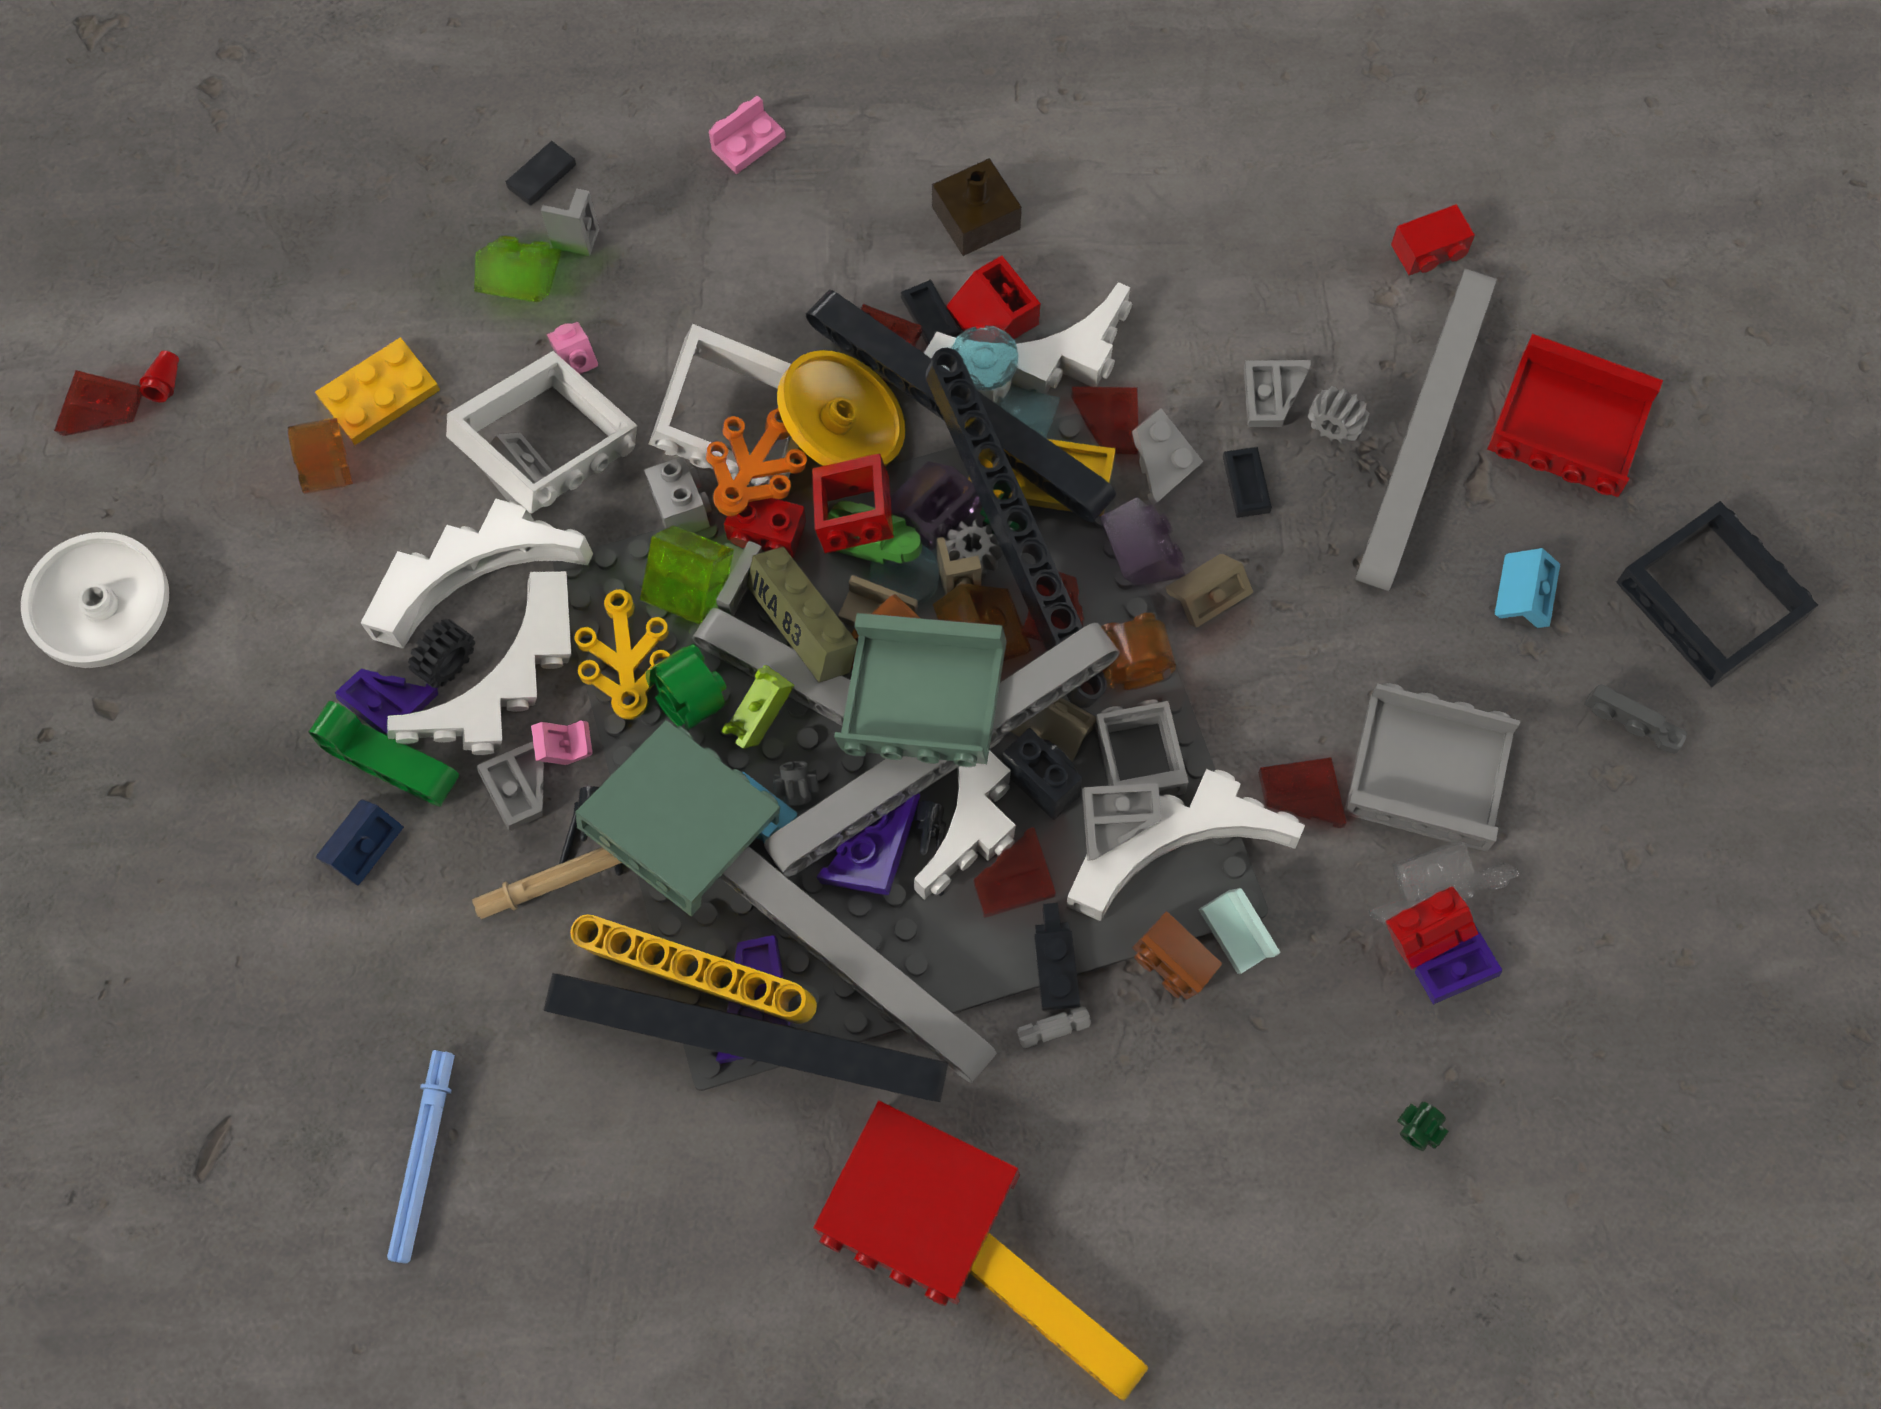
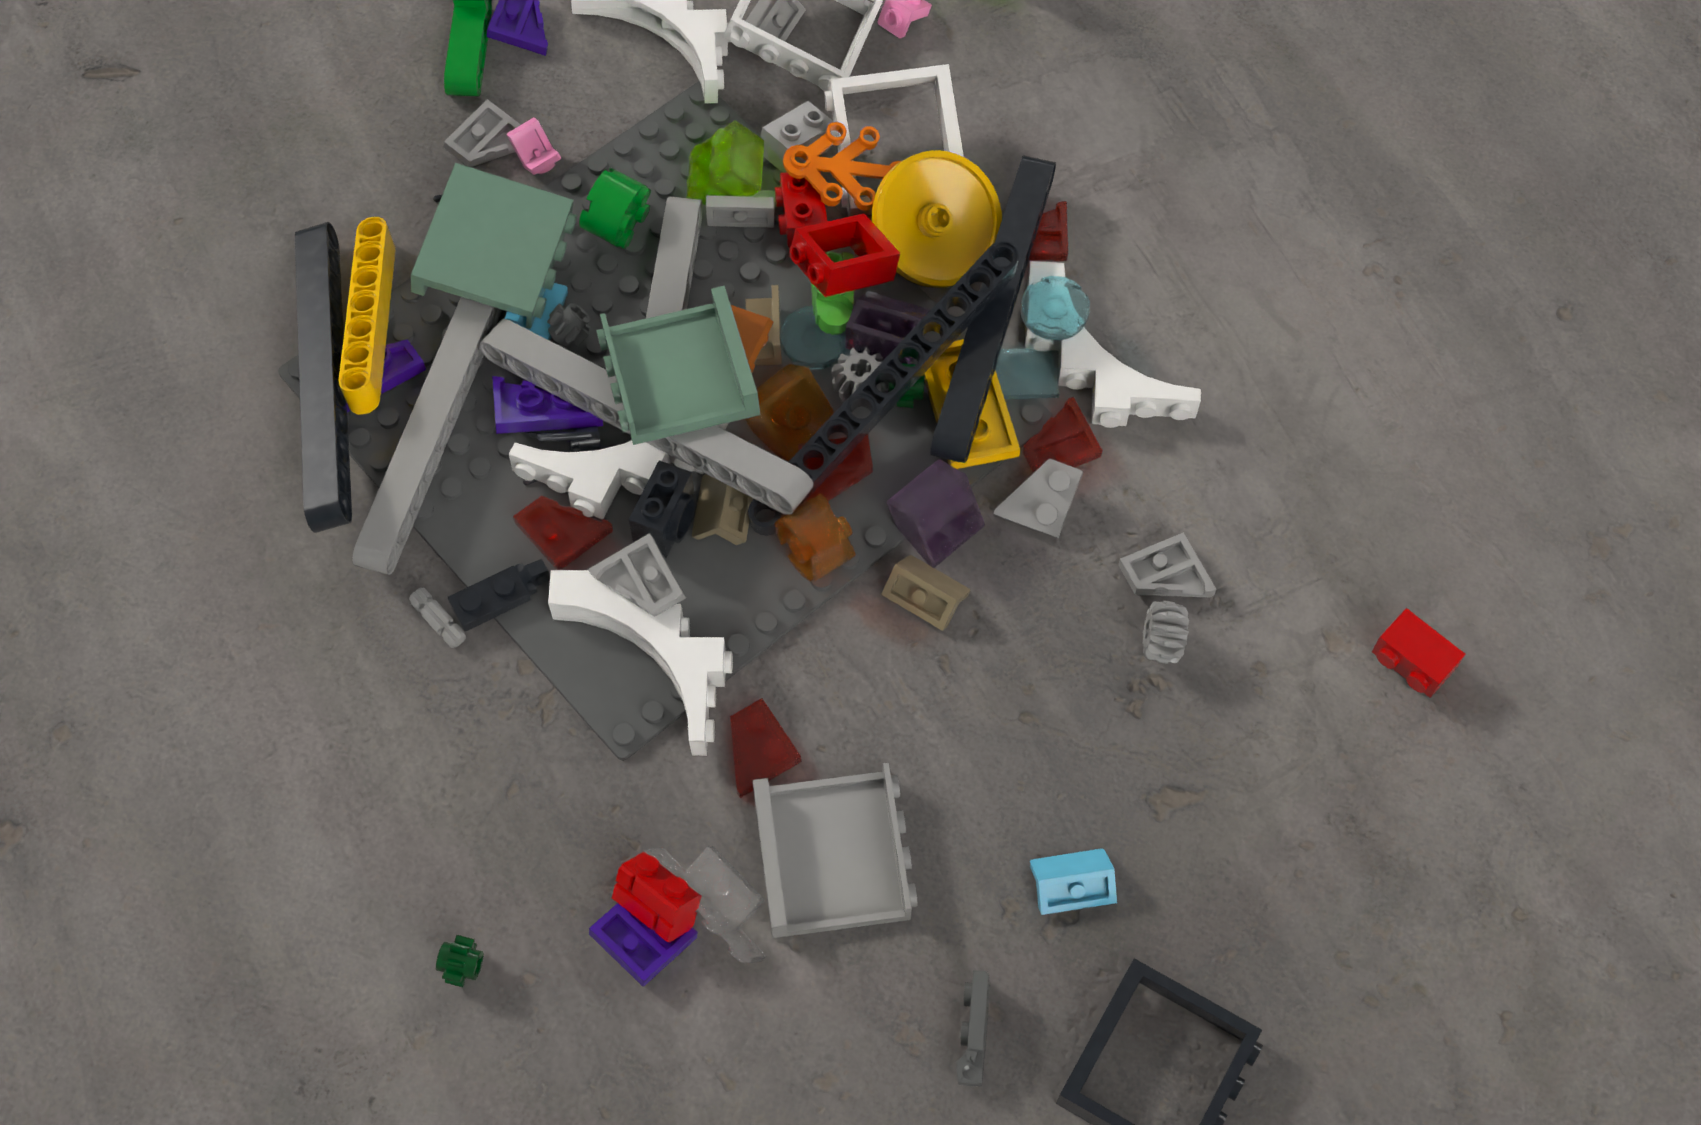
camera: 65 degrees right, 5 degrees down
(360, 841) = (390, 55): dark blue panel -> none
(420, 1156) = (150, 202): light blue axle -> none
(441, 653) = (571, 33): black tyre -> none
(512, 684) = (617, 95): white arch -> none
(543, 882) = (389, 172): tan axle -> none
(625, 659) = (632, 161): yellow plant -> none
(745, 135) = (1189, 48): bright pink bracket -> none
(759, 707) = (622, 270): lime hinge -> none
(801, 614) = (722, 258): olive brick -> none
(915, 1203) = (232, 561): red panel -> none
(929, 311) = (1092, 259): black tile -> none
(958, 571) = (821, 359): dark tan panel -> none
(976, 206) = (1218, 249): dark brown brick -> none
(995, 298) = (1124, 302): red slope -> none
(1058, 1319) = (184, 686): yellow beam -> none
(1146, 713) = (709, 560): light grey window -> none
(1176, 957) = (534, 682): dark orange slope -> none
(1238, 930) = (587, 732): light aqua panel -> none
(1247, 482) = (1058, 585): black tile -> none
(1425, 431) = (1204, 722): light grey beam -> none
(1574, 415) = (1293, 863): red panel -> none

